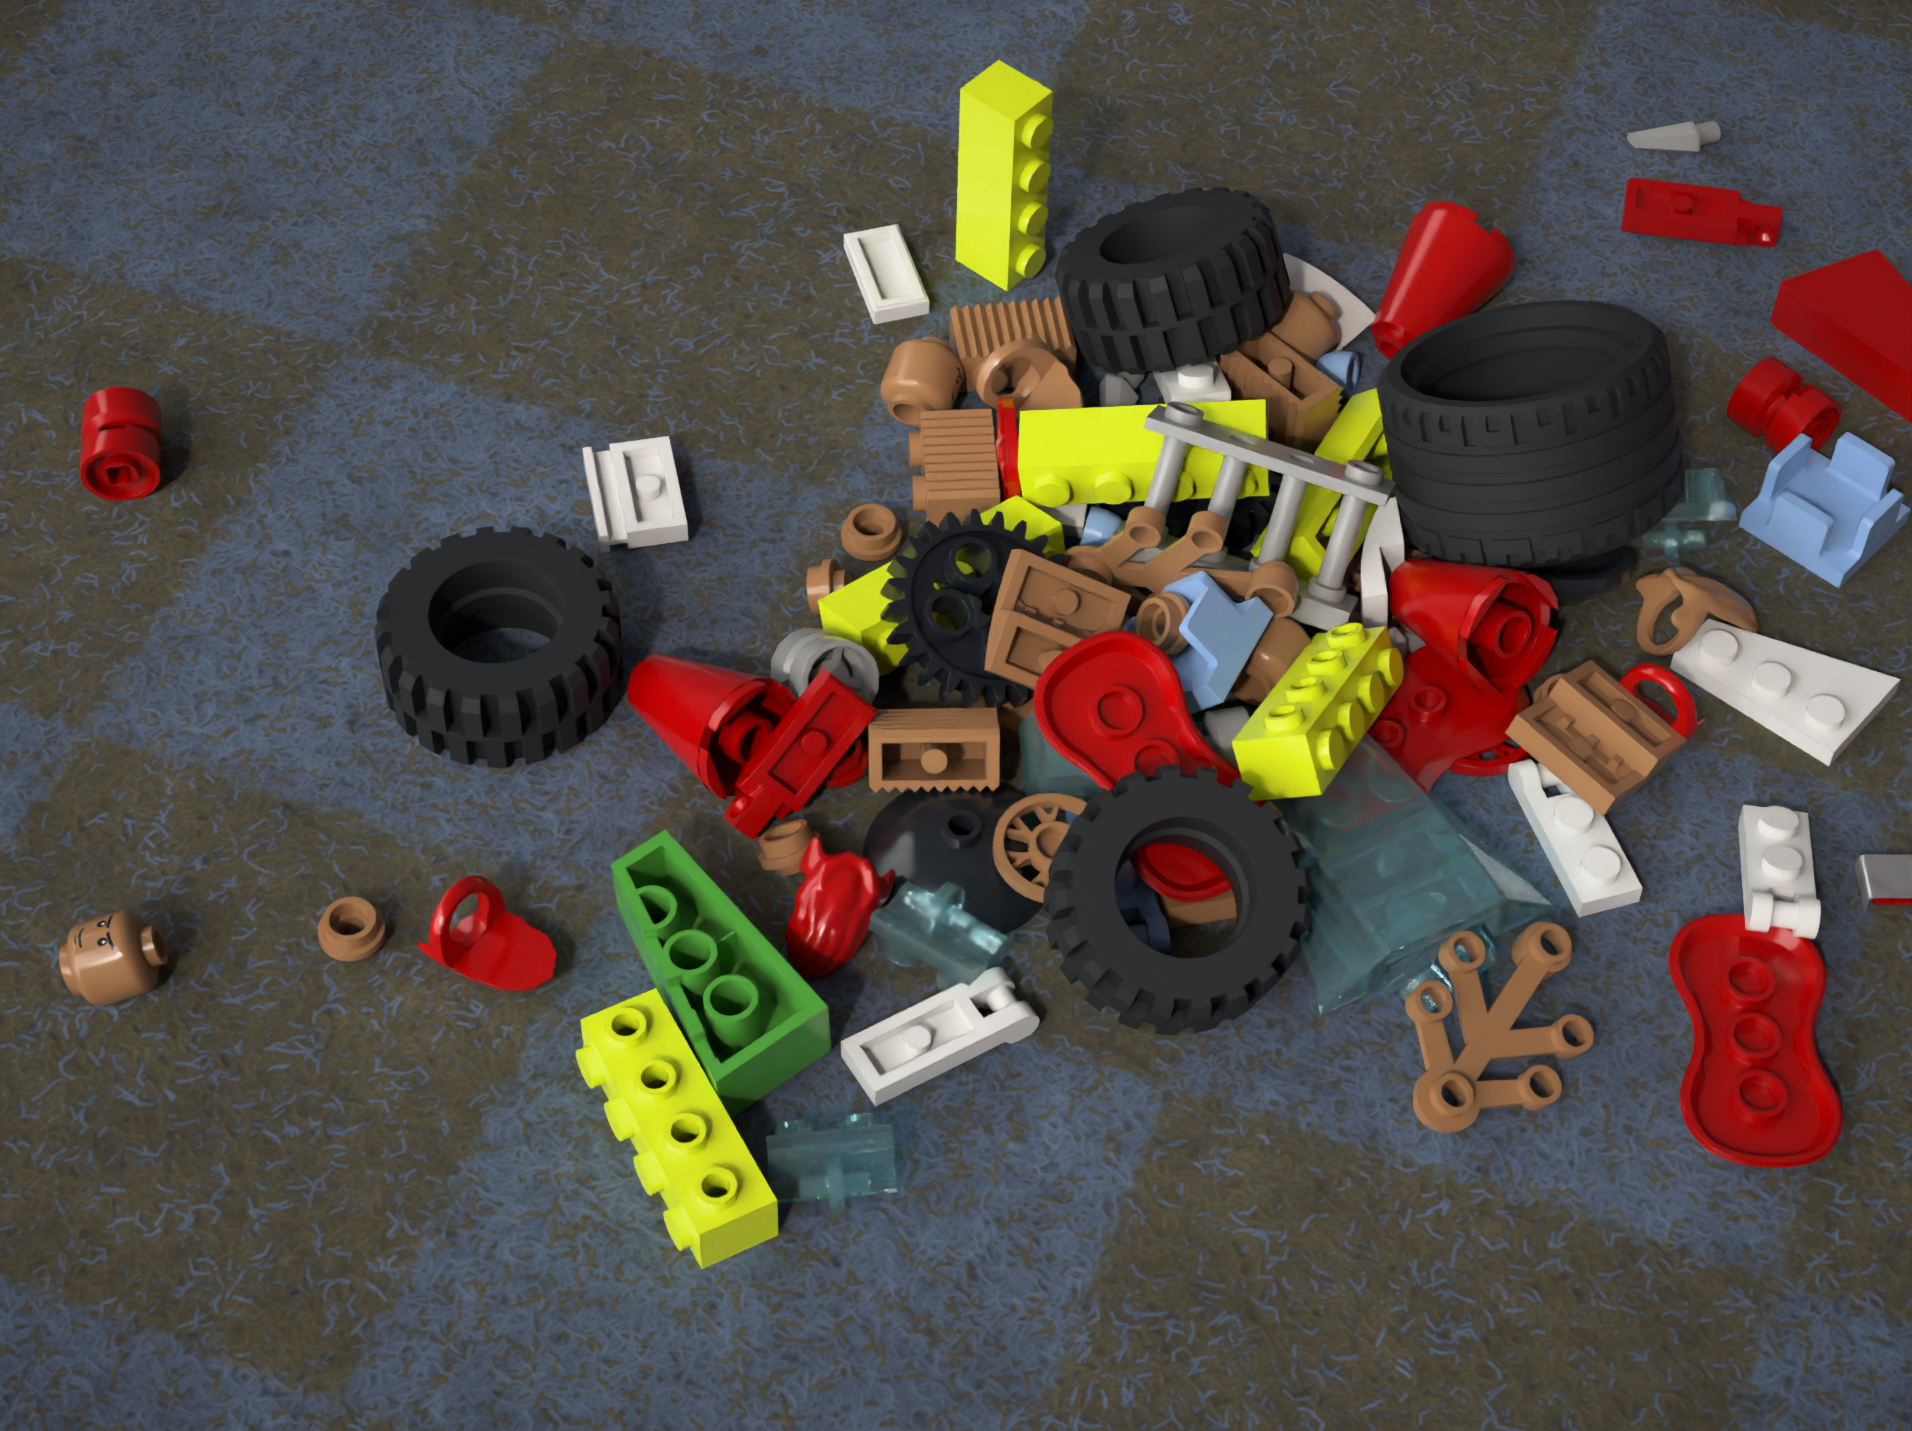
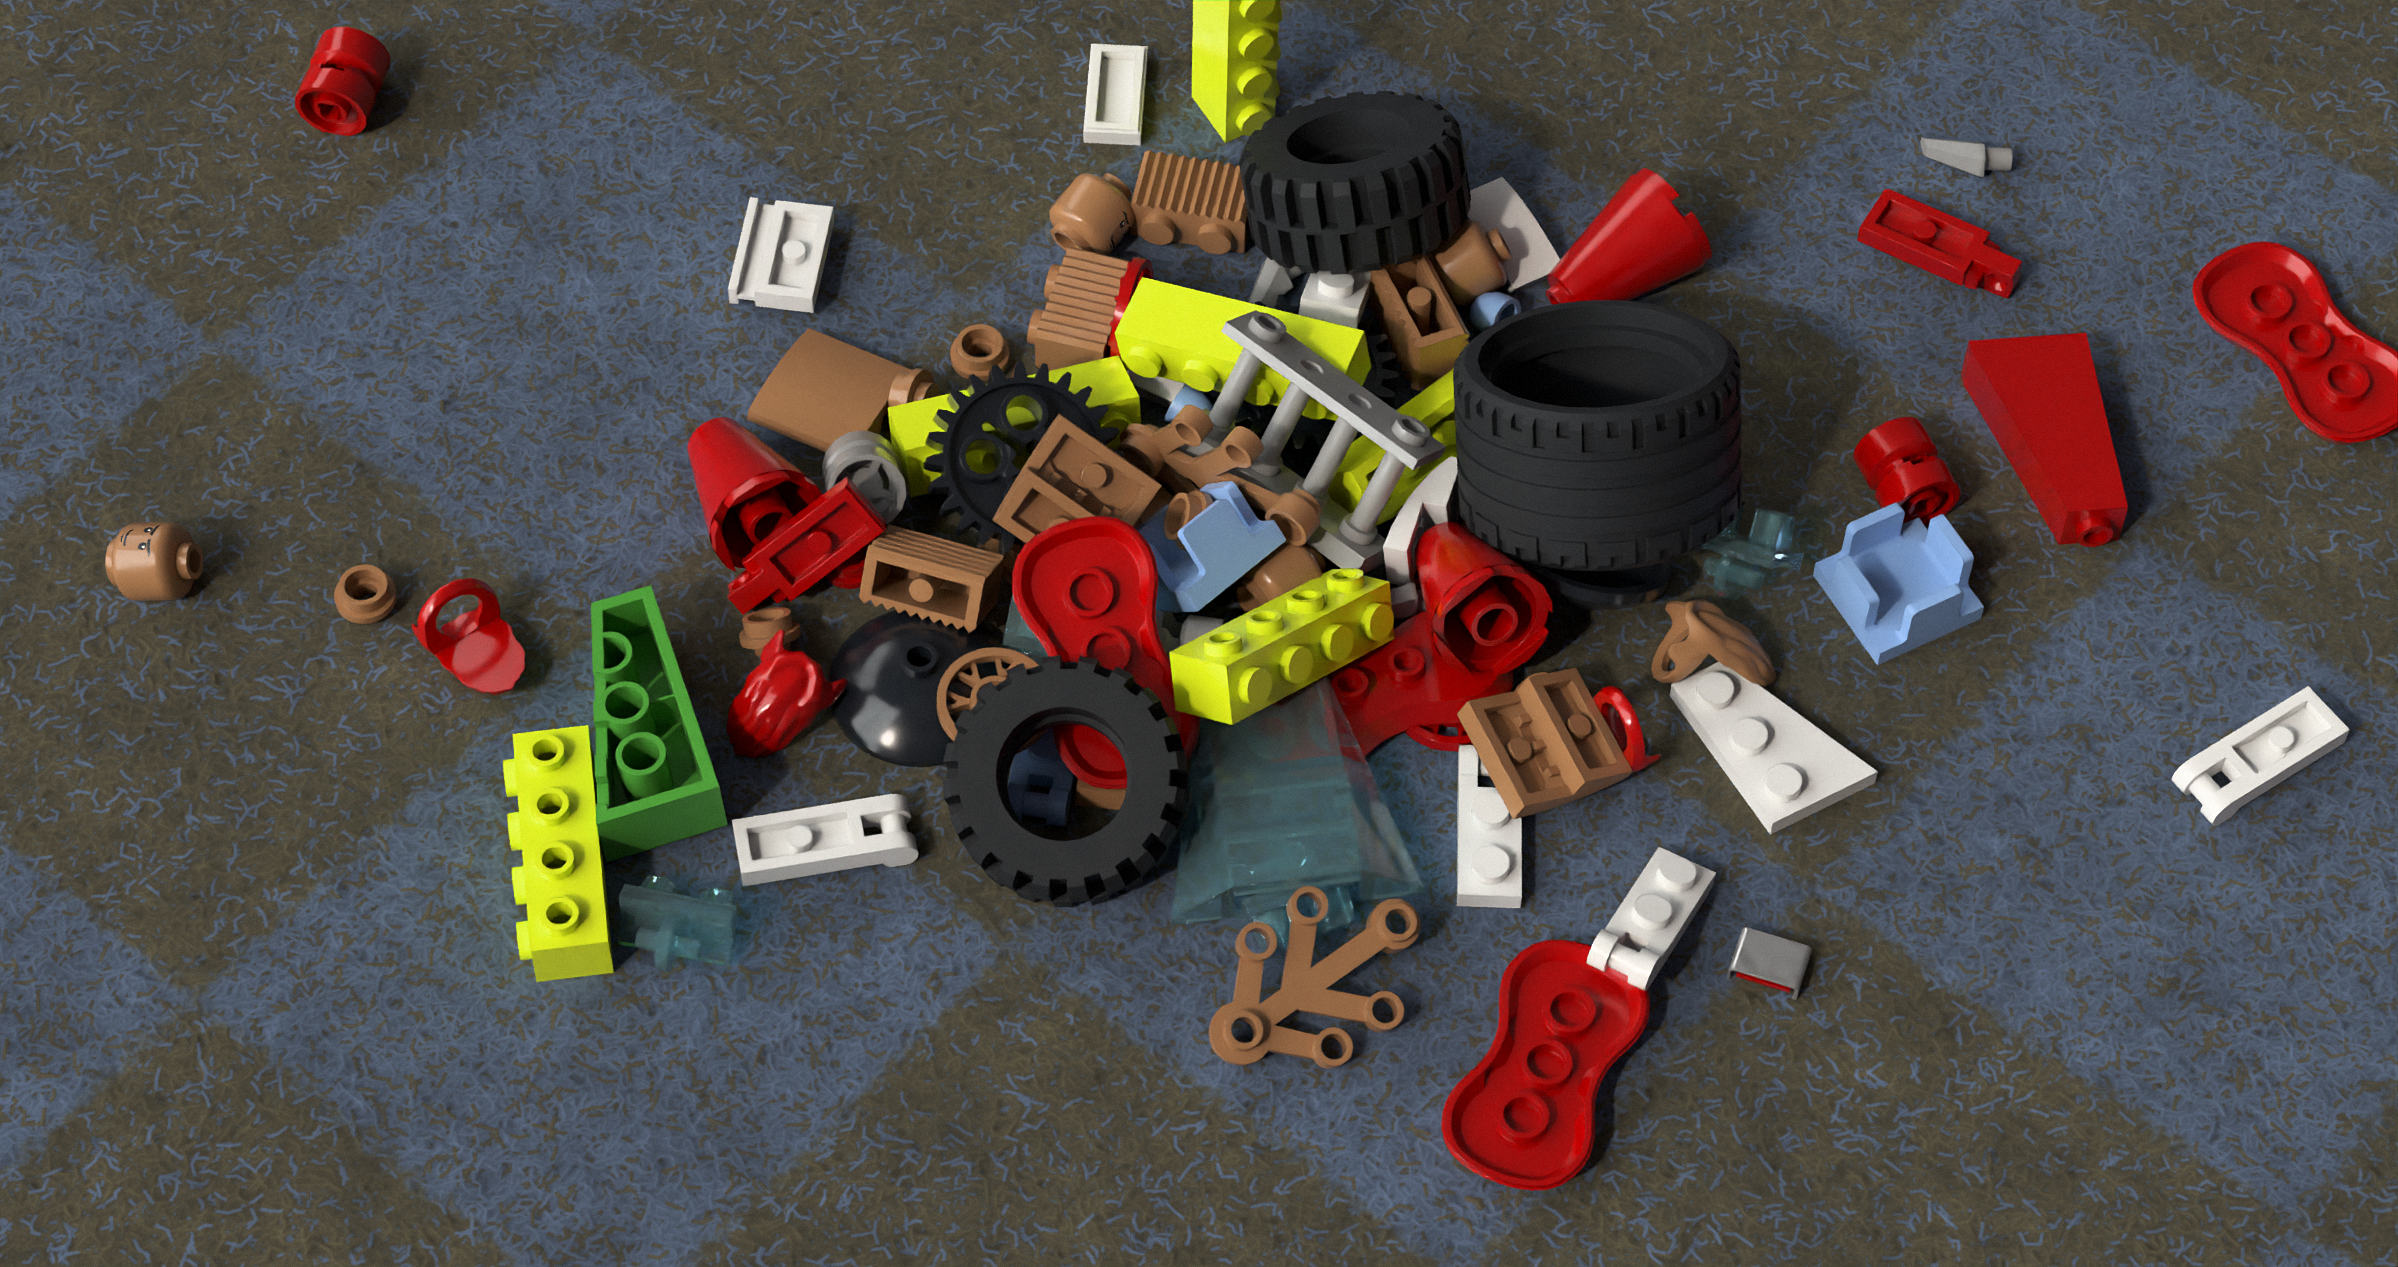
camera: 20 degrees right, 5 degrees up
(511, 705) = (598, 430): black tyre -> none
(739, 608) = (824, 391): none -> medium nougat slope
(938, 932) = (857, 748): clear light blue hips -> none
(1044, 385) = (1195, 260): medium nougat piece -> none

